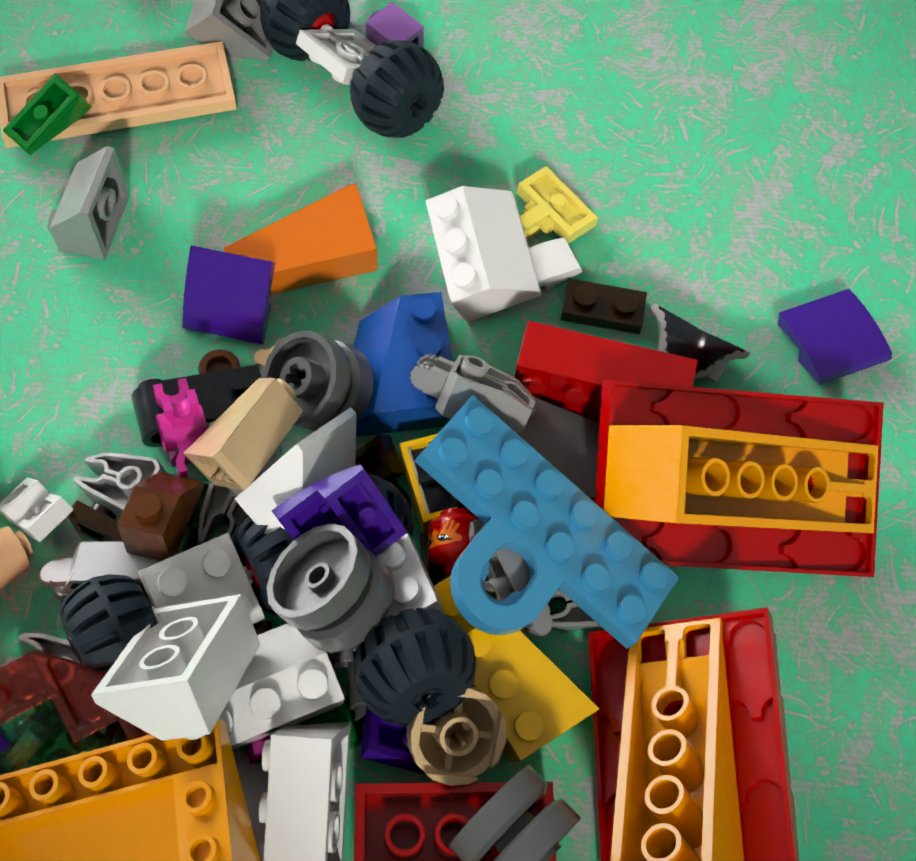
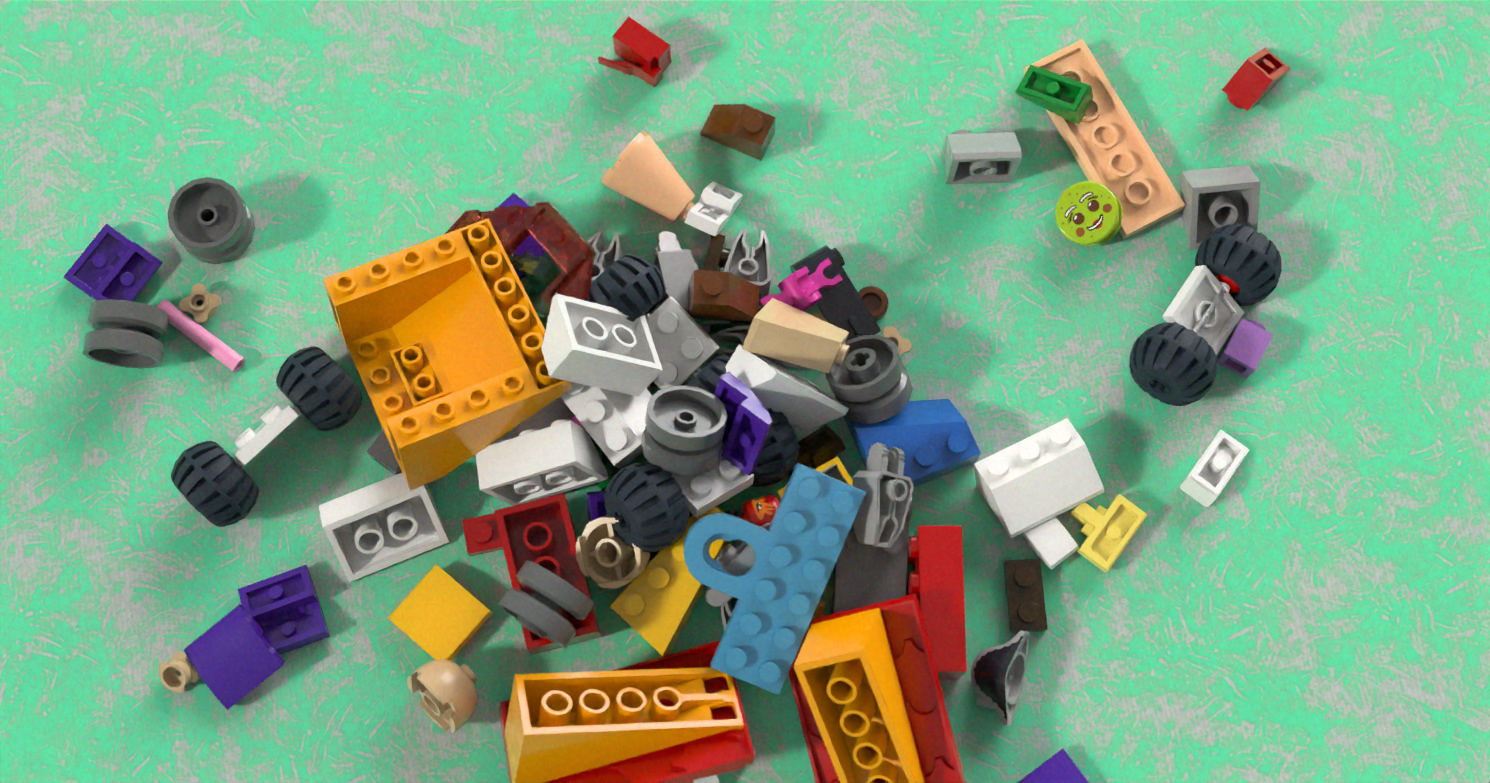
camera: 80 degrees right, 10 degrees up
(199, 123) = (1088, 214): none -> lime head
(227, 294) = (932, 287): dark purple slope -> none
(315, 243) = (999, 336): orange slope -> none
(512, 102) = (1214, 469): none -> white slope

